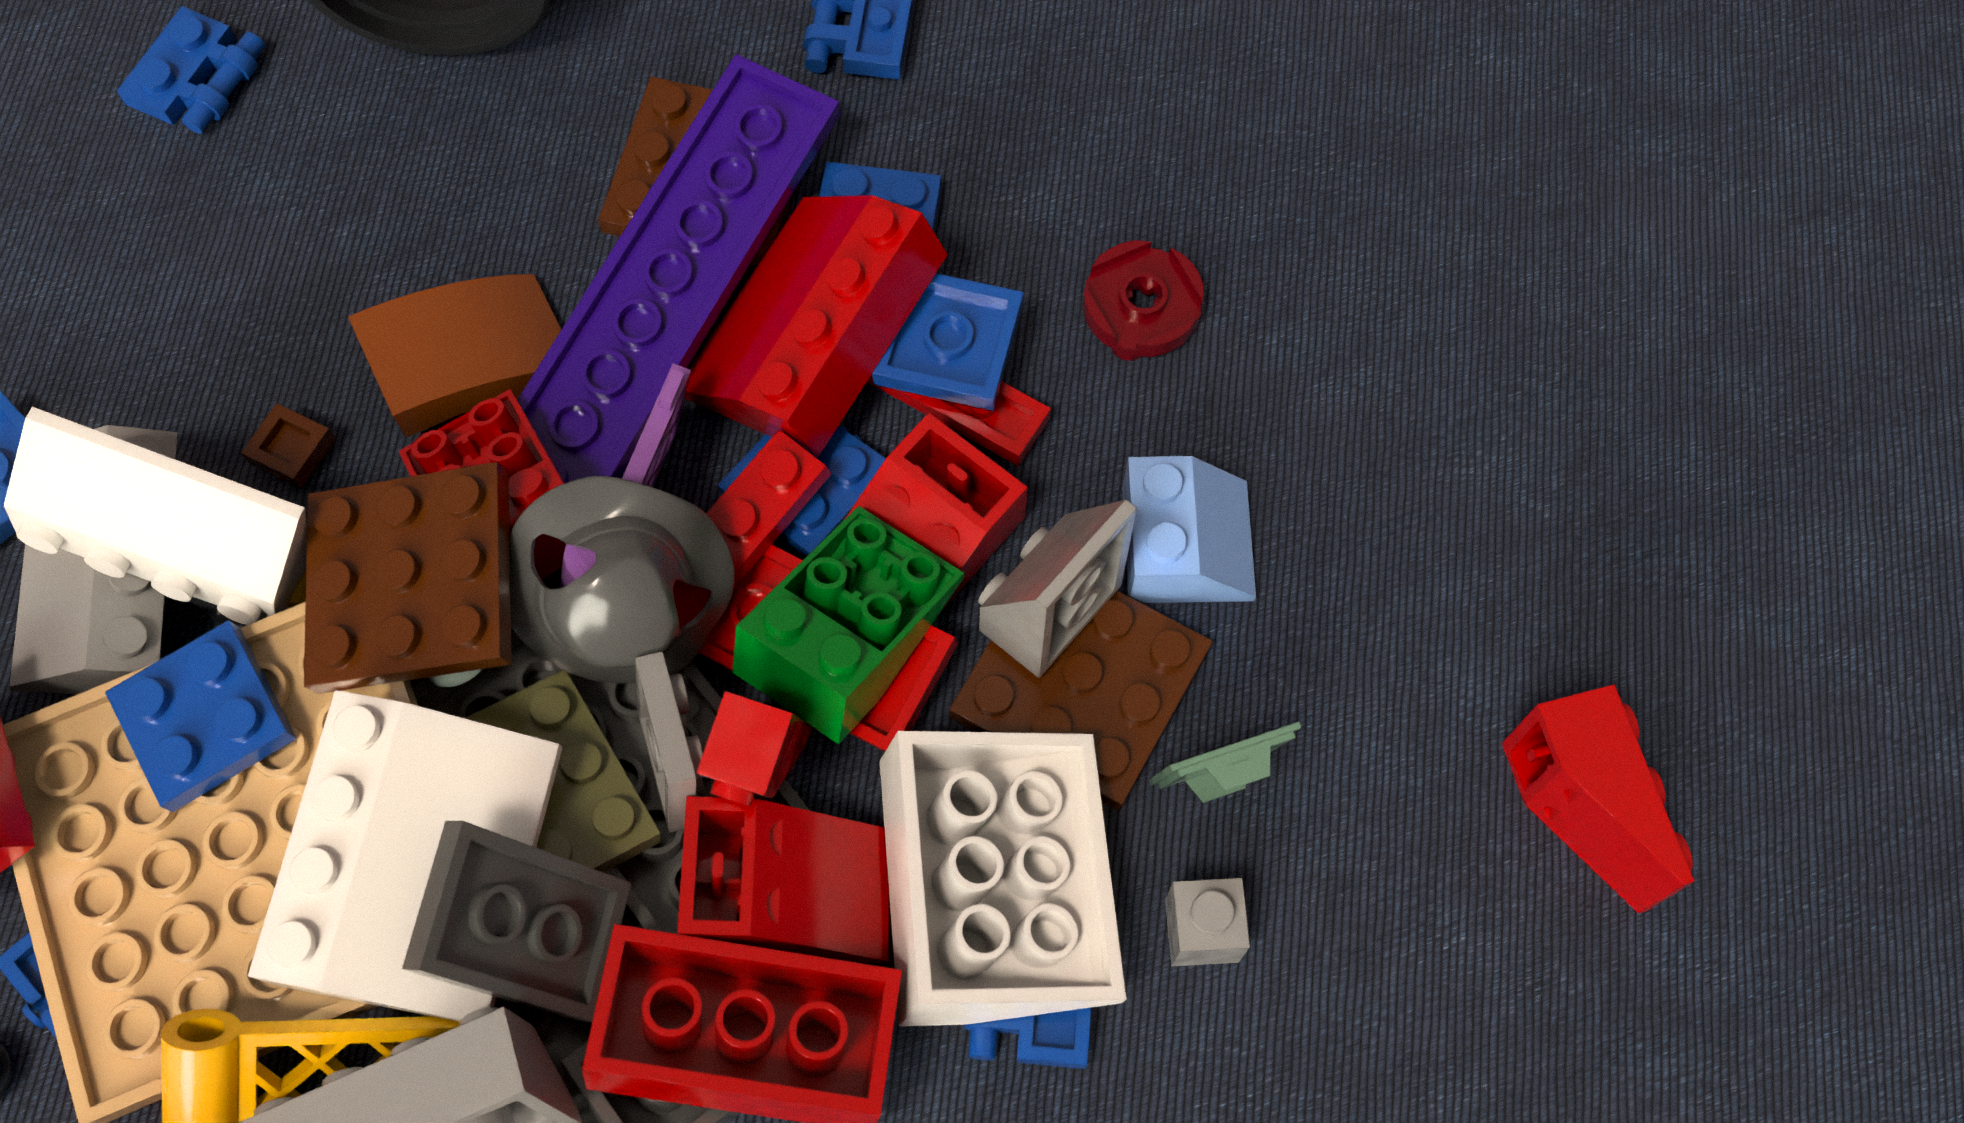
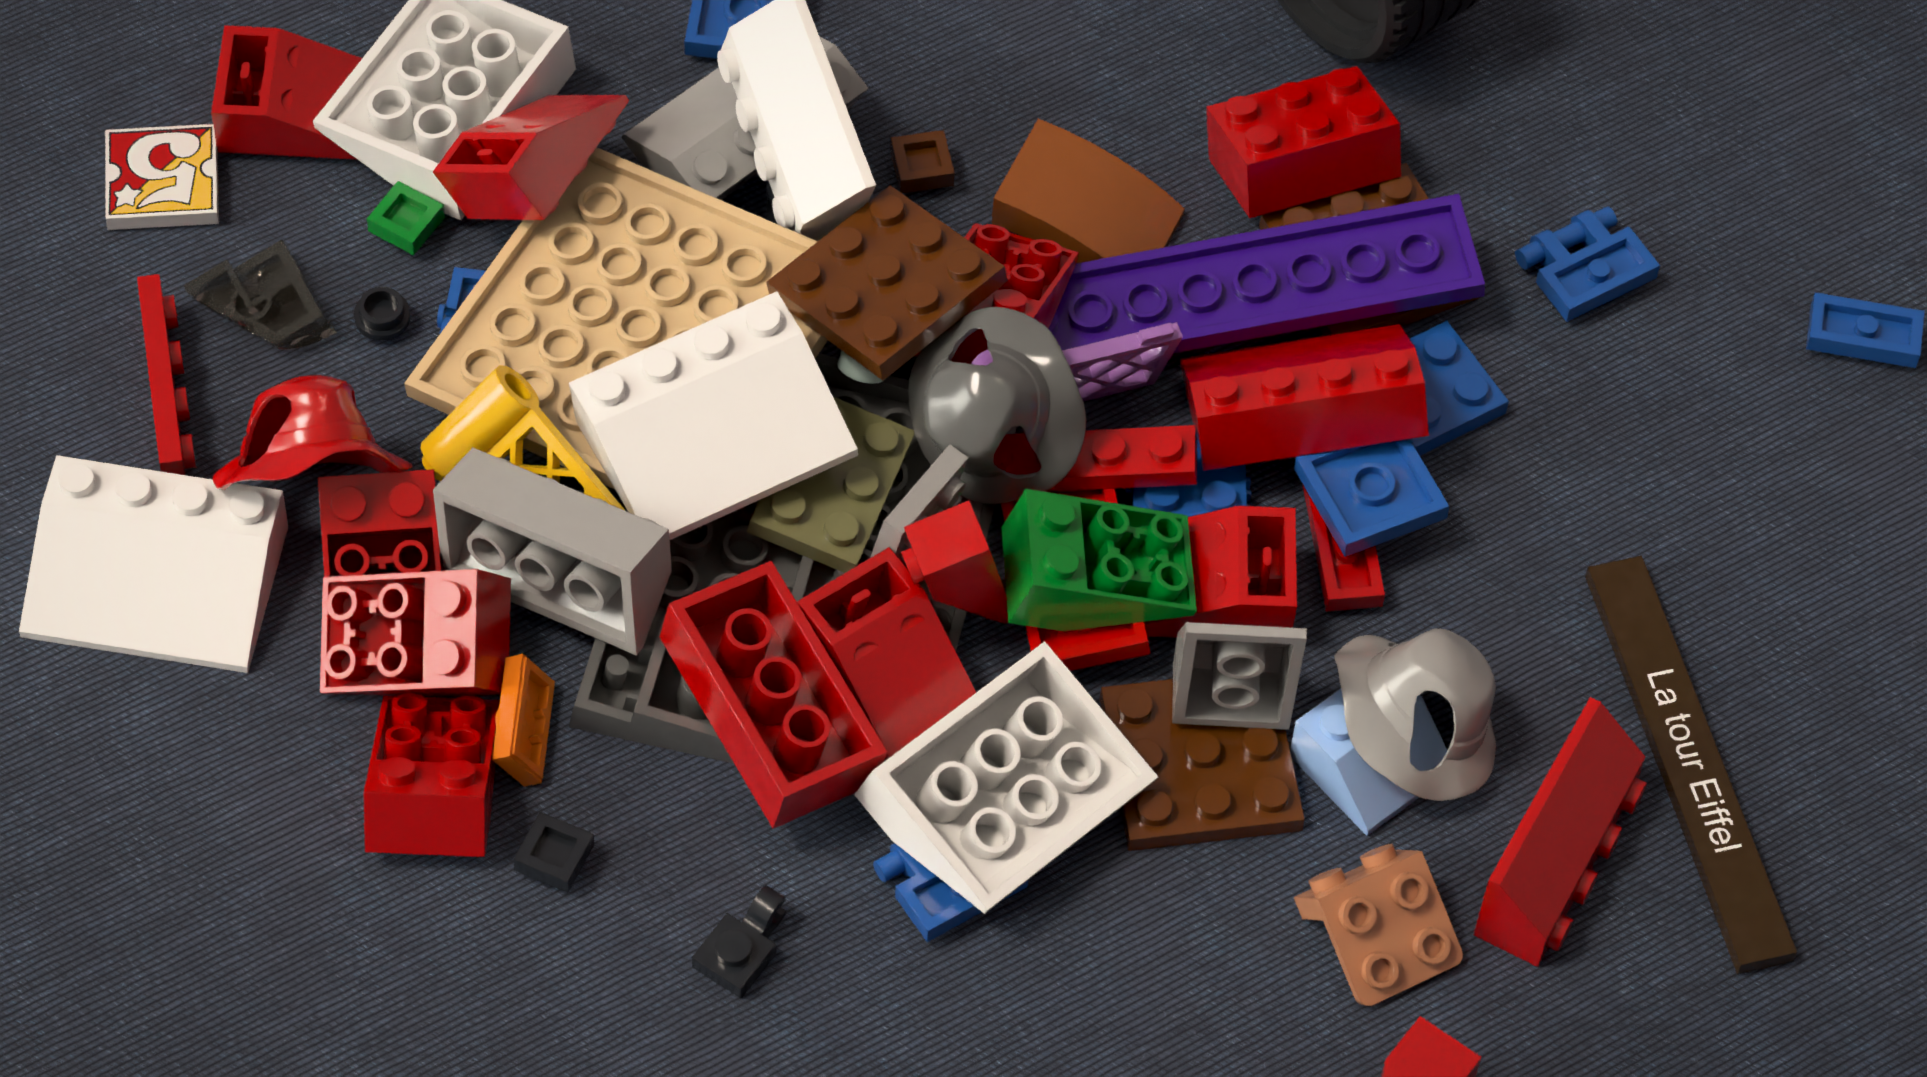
camera: 50 degrees right, 10 degrees down
(200, 716) = (698, 244): blue plate -> none
(515, 922) = (725, 500): dark grey plate -> none
(566, 132) = (1303, 141): none -> red brick
(1135, 330) = (1527, 628): dark red plate -> none
(1171, 467) = (1379, 701): none -> light grey piece
(1207, 922) = (1090, 941): light grey brick -> none
(1228, 767) = (1214, 875): sand green piece -> none
(1357, 652) = (1383, 922): none -> nougat bracket
(1383, 304) = (1690, 766): none -> dark brown tile
(1393, 454) = (1562, 837): none -> red slope

